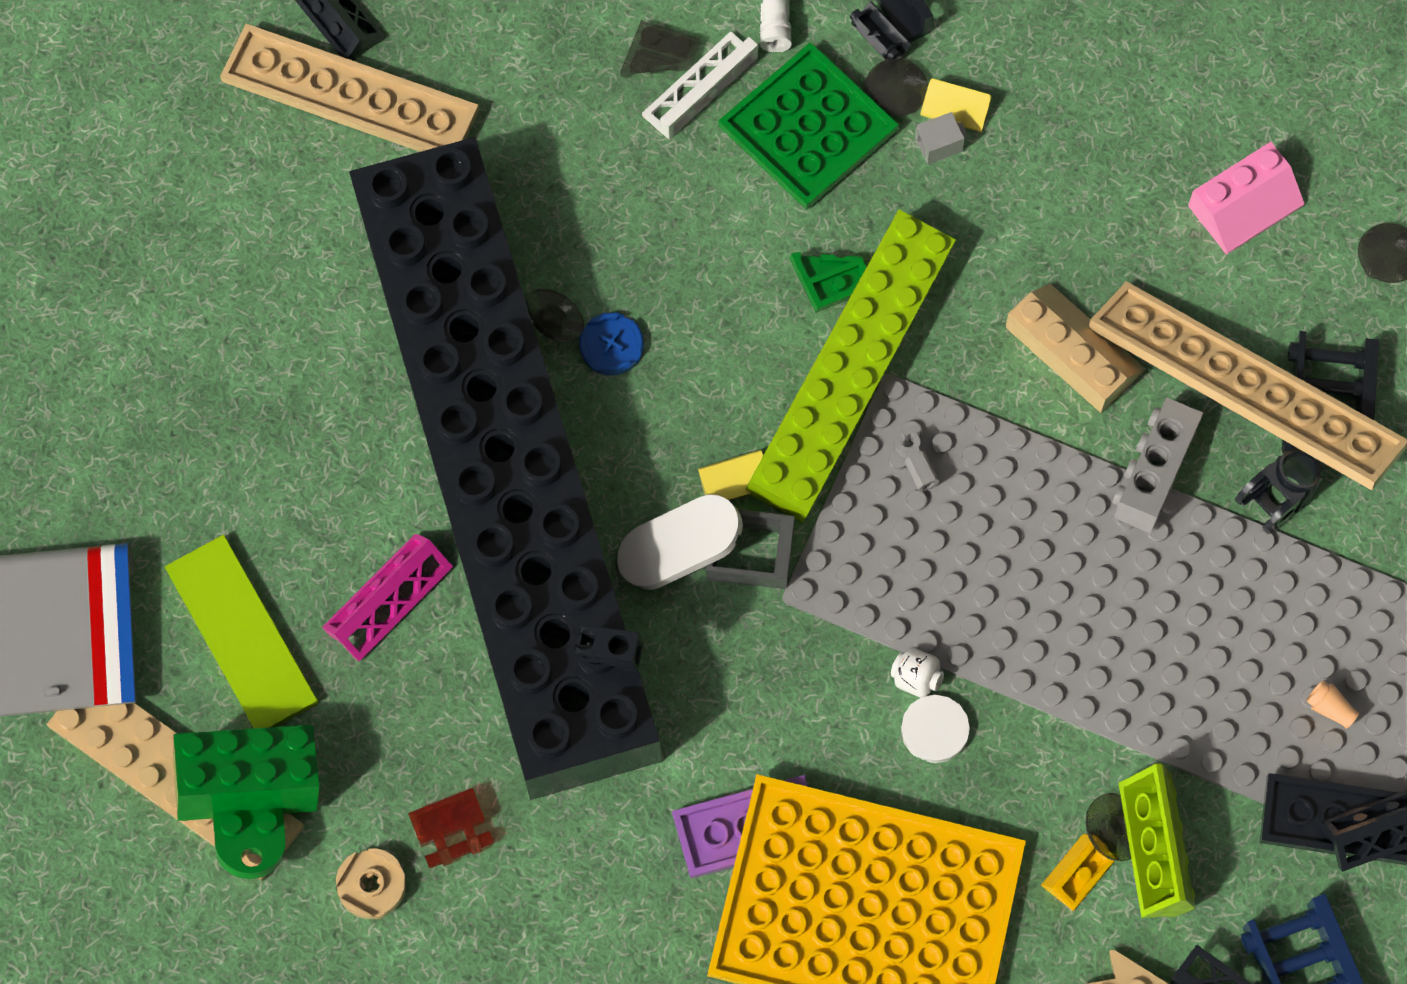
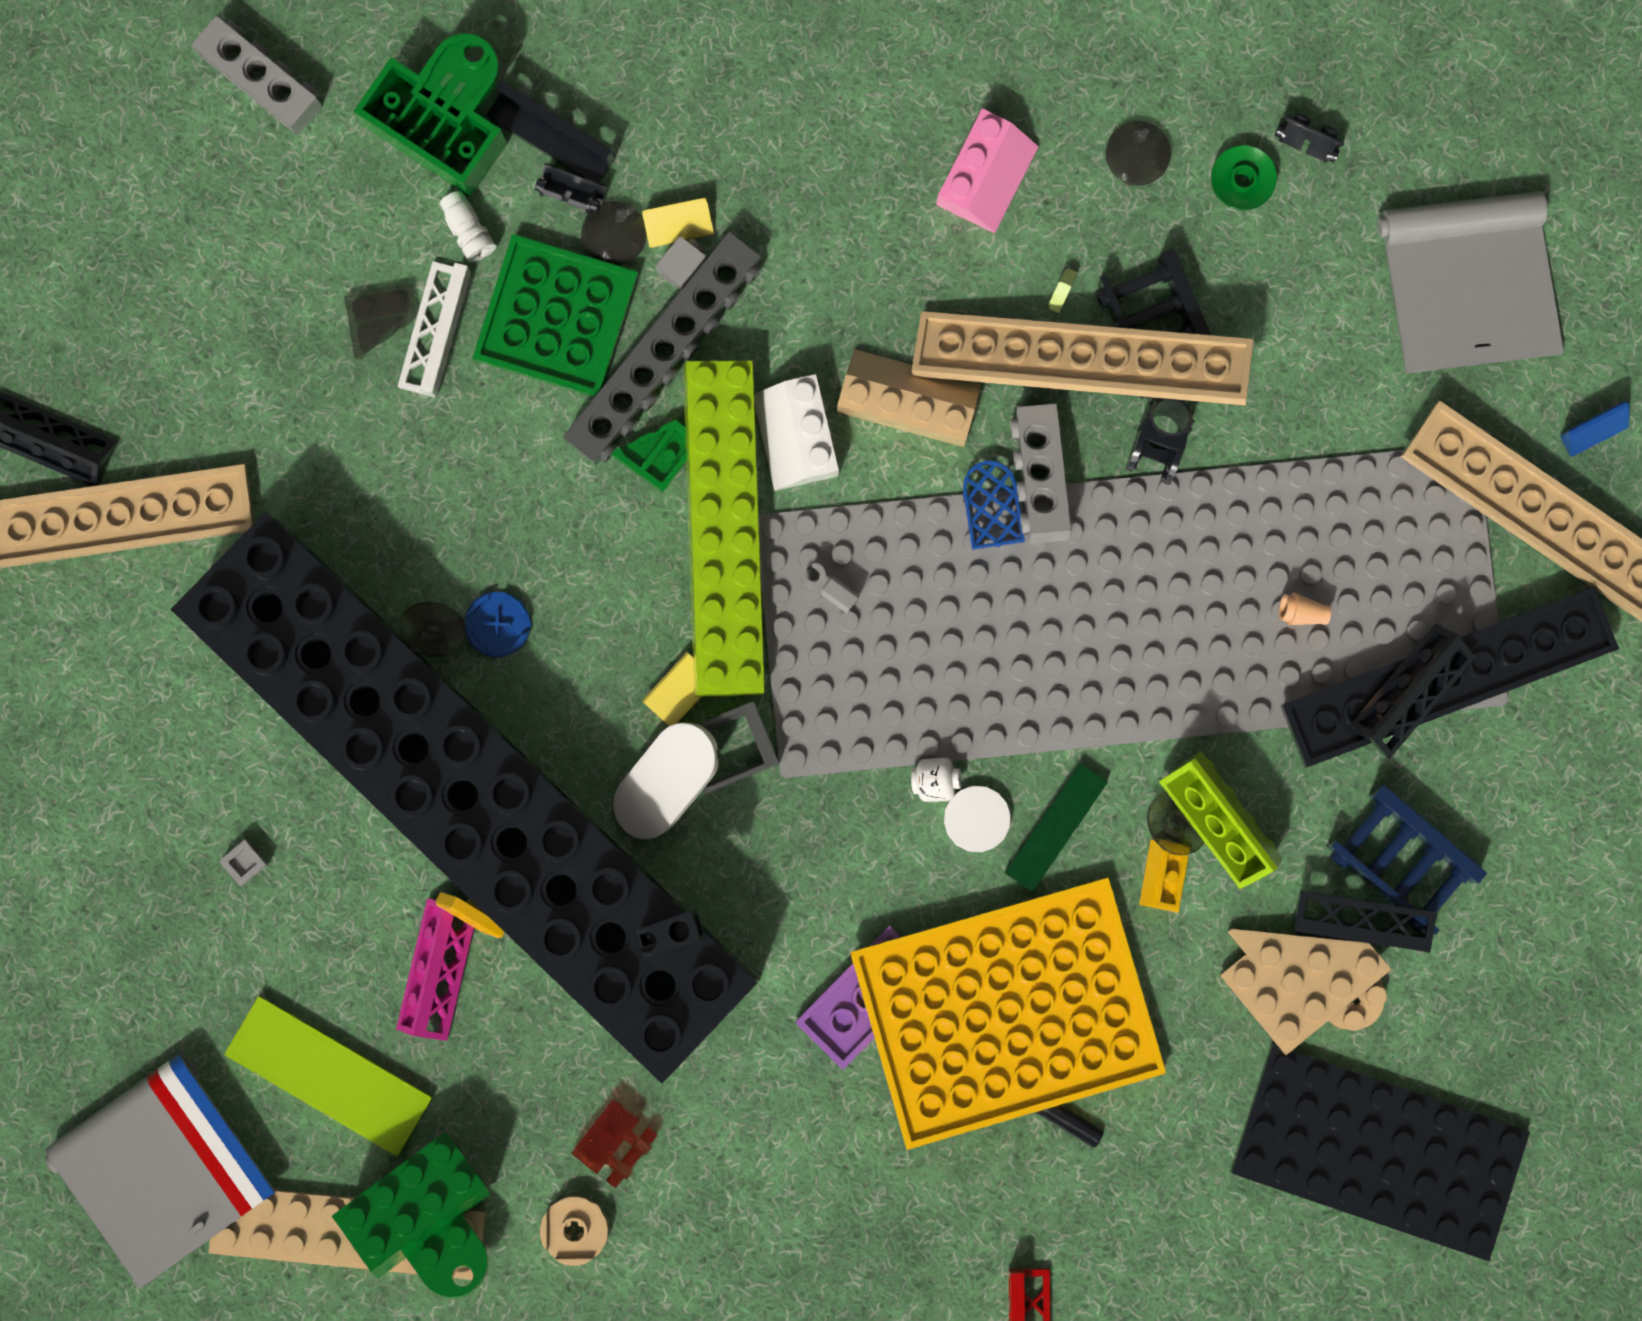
camera: 30 degrees left, 15 degrees up
(279, 419) = (243, 863): none -> light grey plate
(445, 561) = (469, 913): none -> yellow plate
(953, 161) = (728, 254): none -> dark grey brick
(960, 322) = (795, 433): none -> white slope
(1002, 775) = (1056, 827): none -> dark green tile
(1101, 462) = (1004, 506): none -> blue window
(1260, 328) = (1062, 290): none -> yellowish green tile

